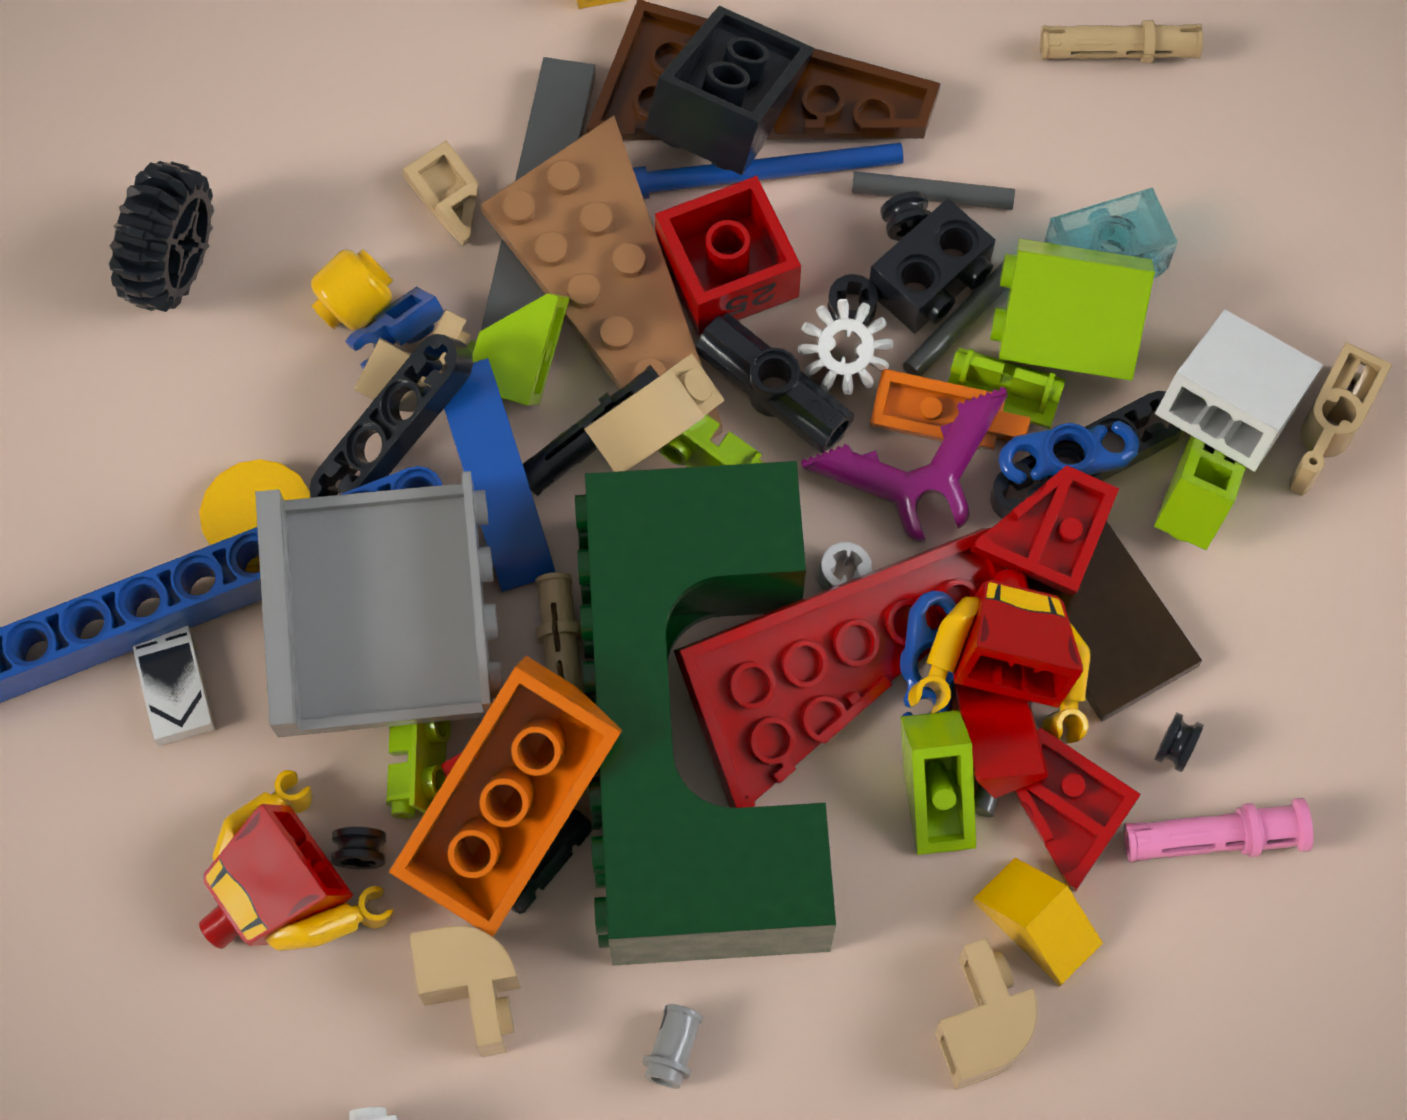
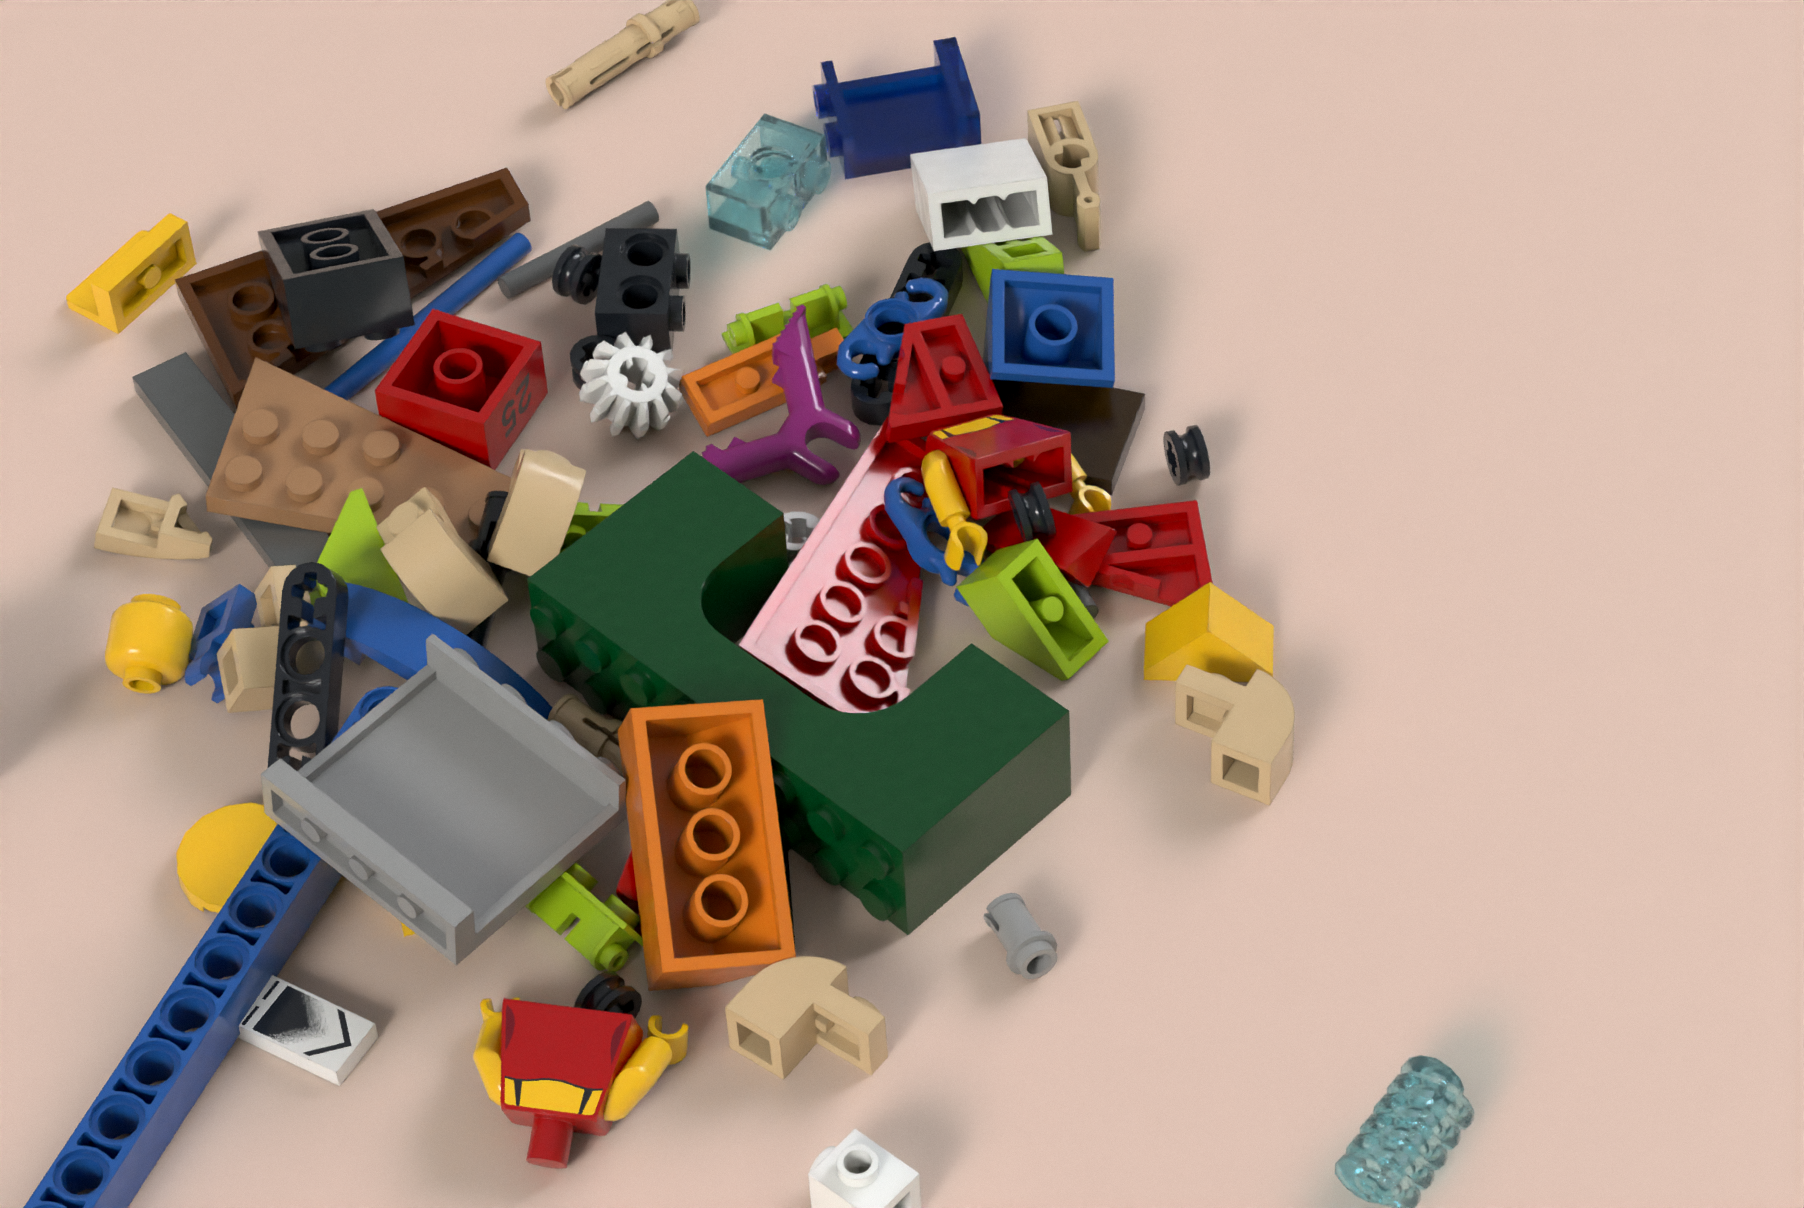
camera: 40 degrees left, 20 degrees down
(547, 401) = (439, 564): none -> tan brick
(798, 404) = (605, 449): black piece -> none
(955, 324) = (701, 306): dark grey bar -> none
(995, 712) = (1032, 512): none -> black bush
(1073, 308) = (792, 229): lime brick -> none
(1170, 558) = (1050, 328): none -> blue slope
(1245, 830) = (1299, 474): bright pink pin -> none
(1261, 260) = (898, 114): none -> clear blue panel

